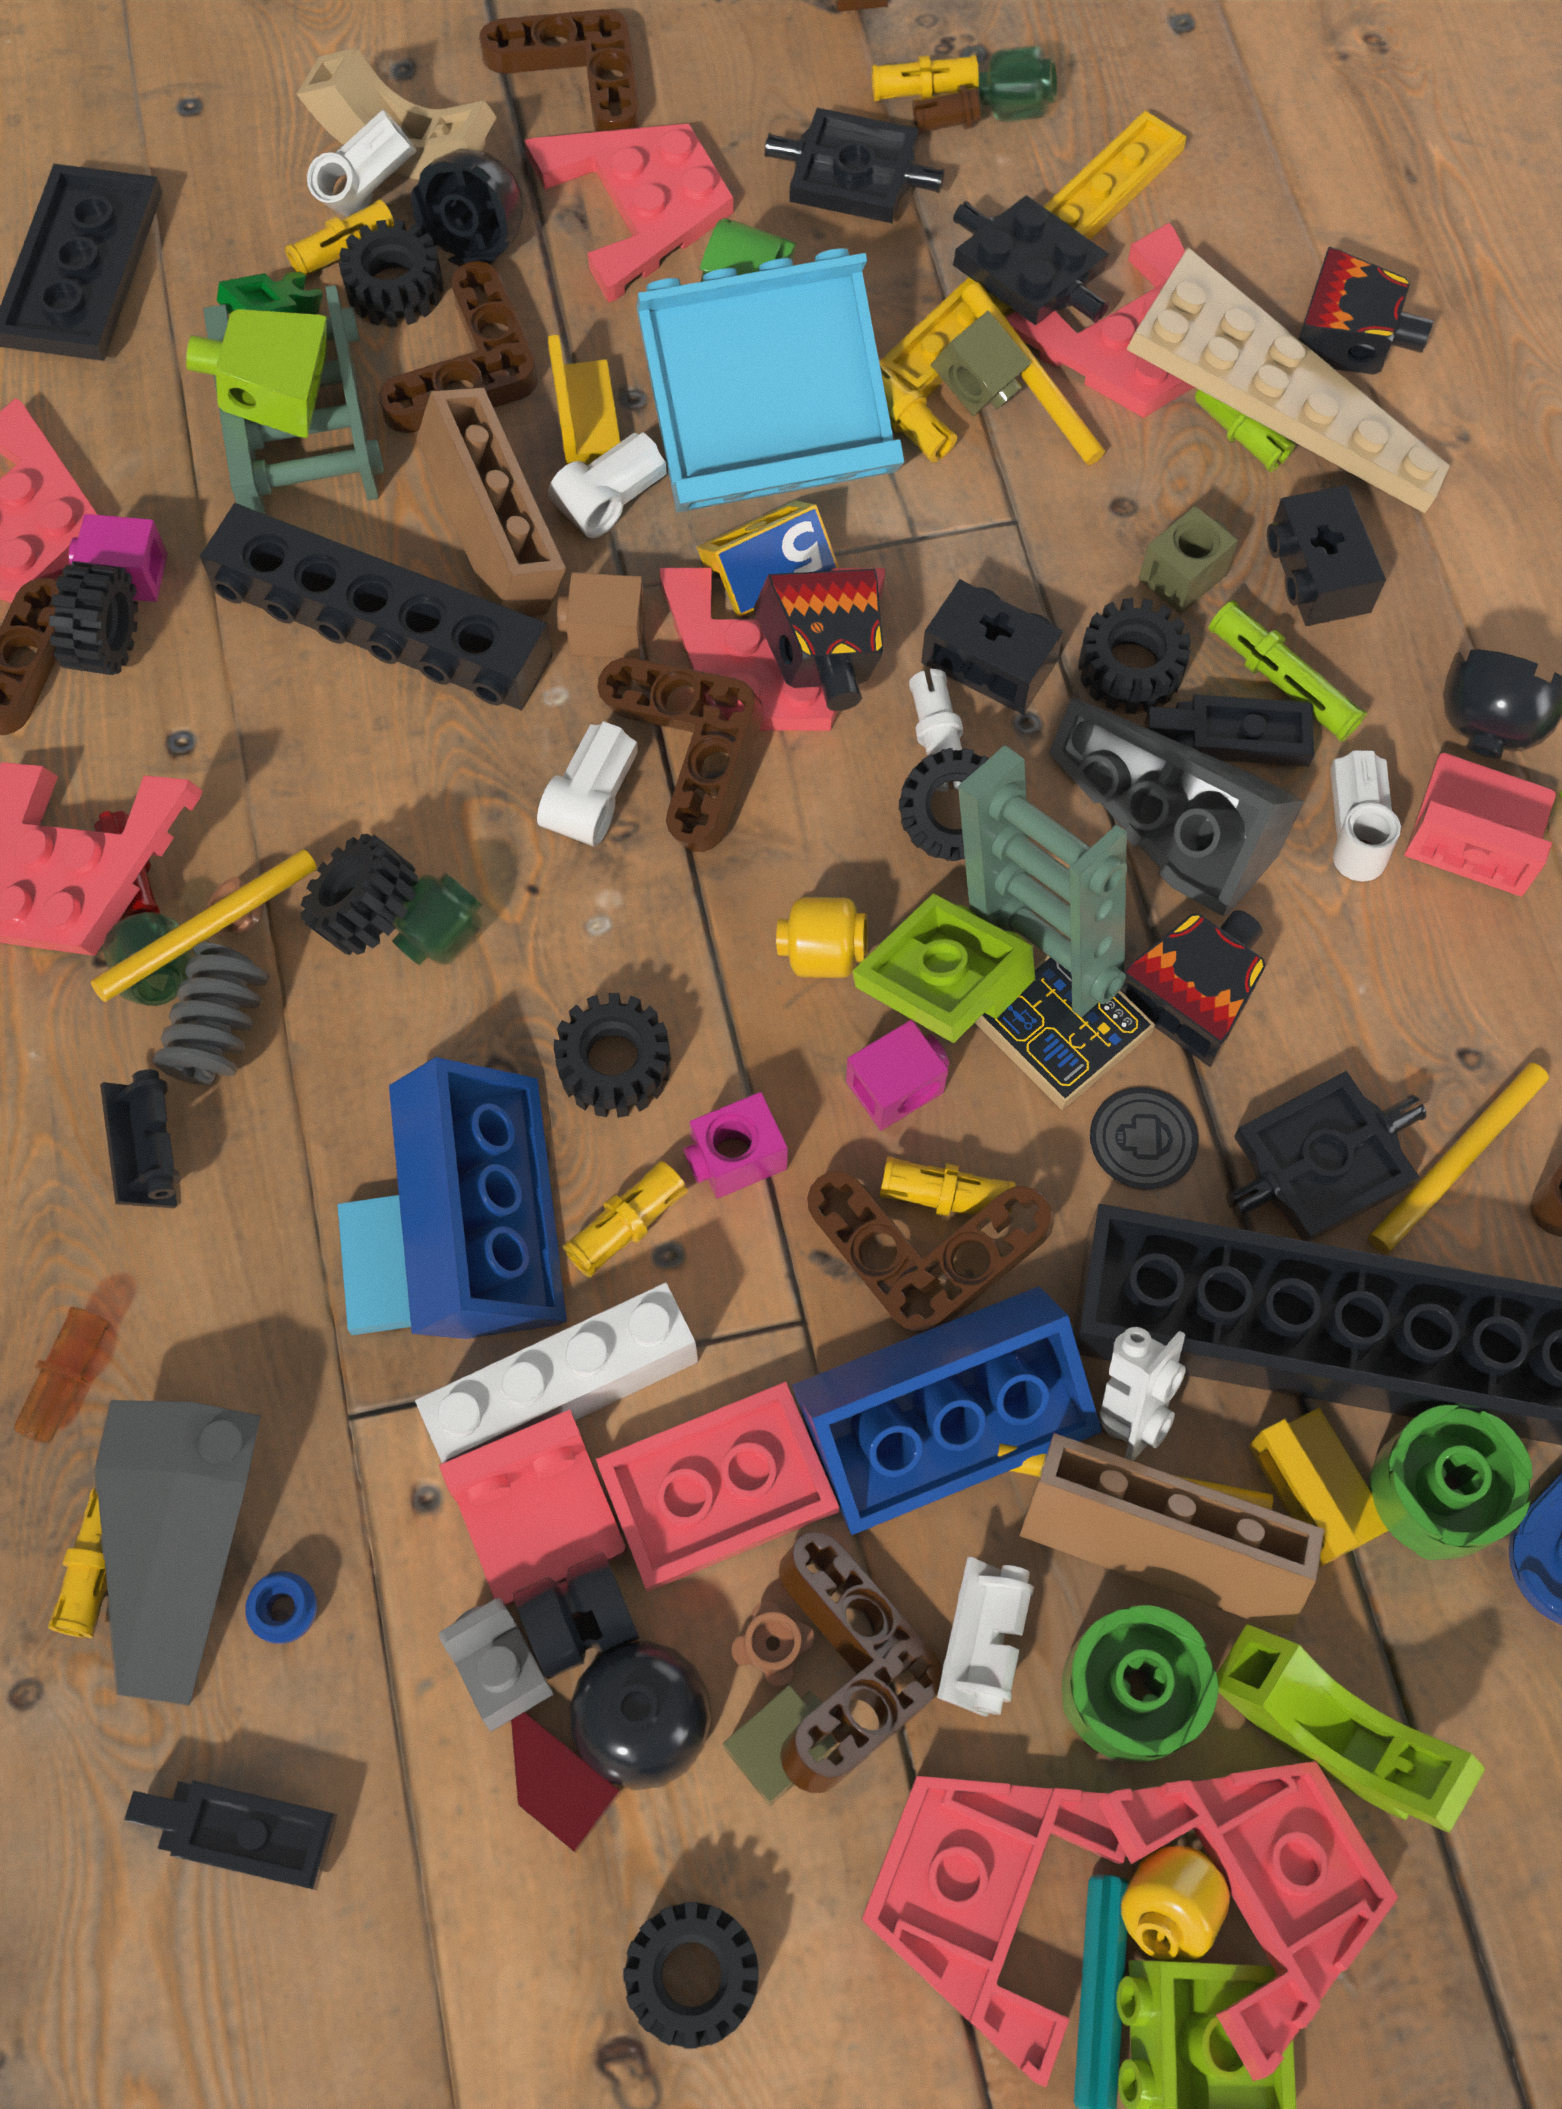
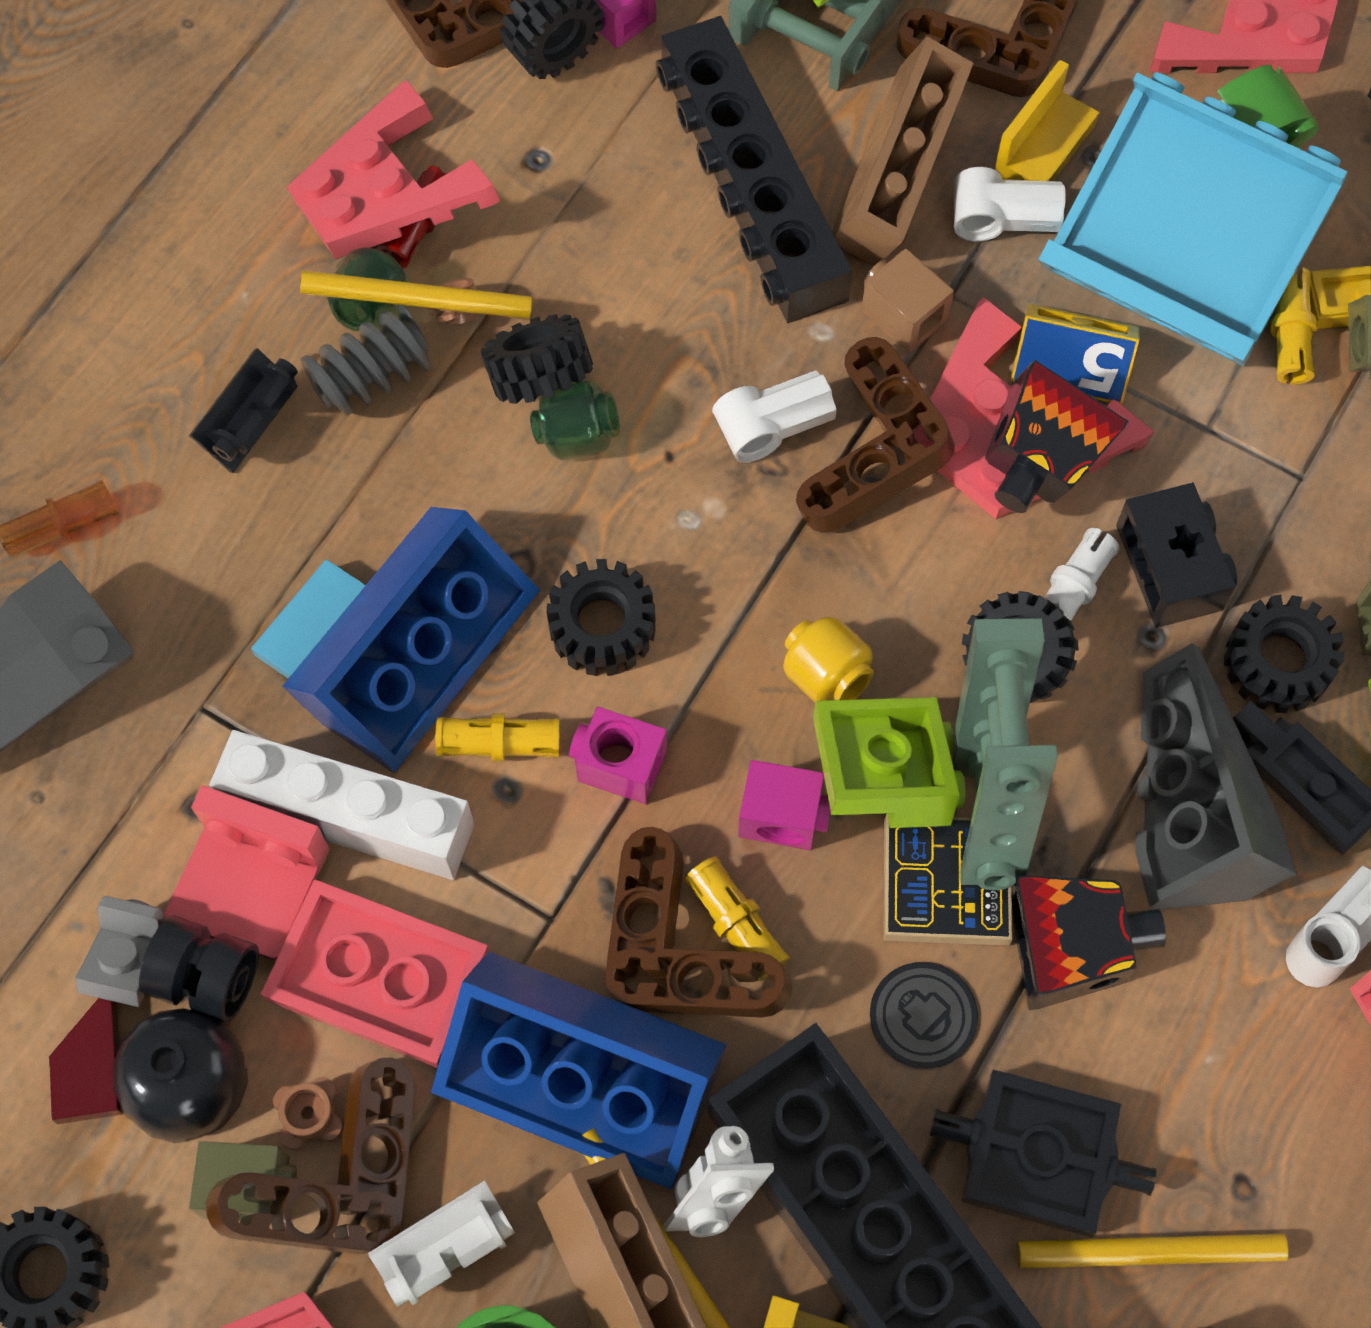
camera: 45 degrees right, 0 degrees up
(266, 1593) = (27, 780): blue plate -> none

